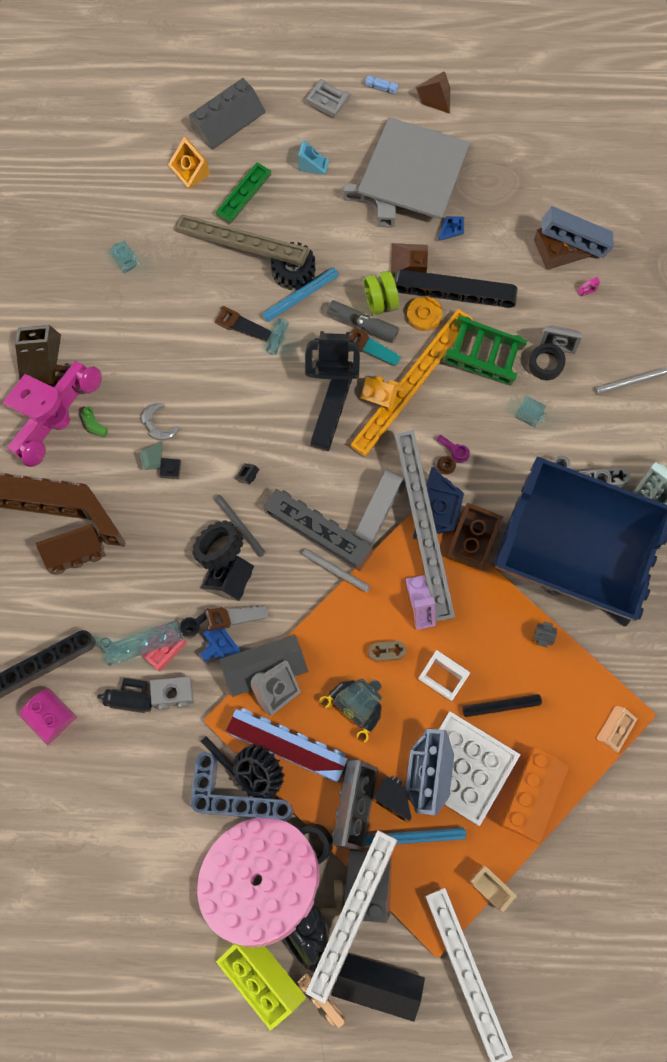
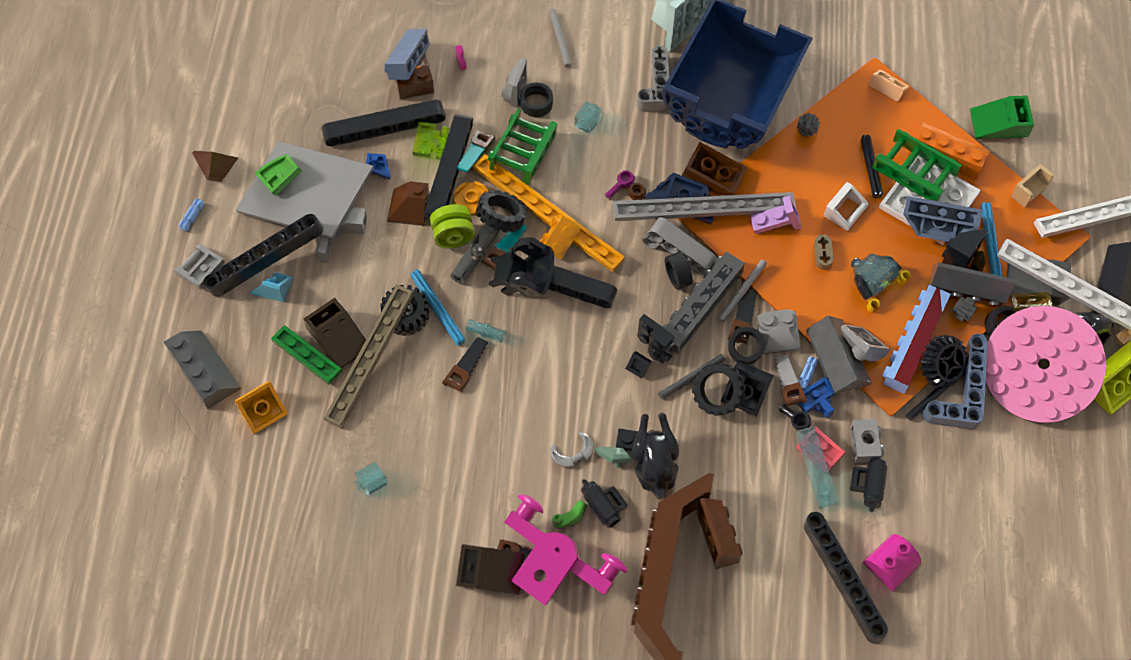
camera: 90 degrees left, 10 degrees down
(103, 447) = (601, 504): none -> black piece
(147, 491) = (655, 457): none -> black piece
(246, 636) = (808, 372): none -> light blue axle
(259, 567) = (746, 331): none -> black tyre
(265, 210) = (335, 332): none -> dark brown slope
(265, 485) = (659, 340): none -> black plate
(291, 607) = (779, 330): none -> light grey slope
(308, 573) = (744, 315): none -> black piece
(325, 799) = (964, 309): none -> dark grey gear
(332, 872) = (1026, 300): none -> clear yellow slope
(336, 141) = (254, 257): none -> black beam
(349, 504) = (678, 270): none -> black tyre
(383, 818) = (978, 261): none -> dark brown tile
(421, 335) = (496, 220): none -> black tyre
(427, 141) = (278, 173): none -> bright green plate
(477, 310) = (475, 150): none -> piece
(477, 749) = (907, 178): none -> green fence
(485, 264) = (425, 138): none -> clear neon green plate
(500, 227) = (382, 123): none -> black beam
(586, 860) = (1003, 118): none -> green slope

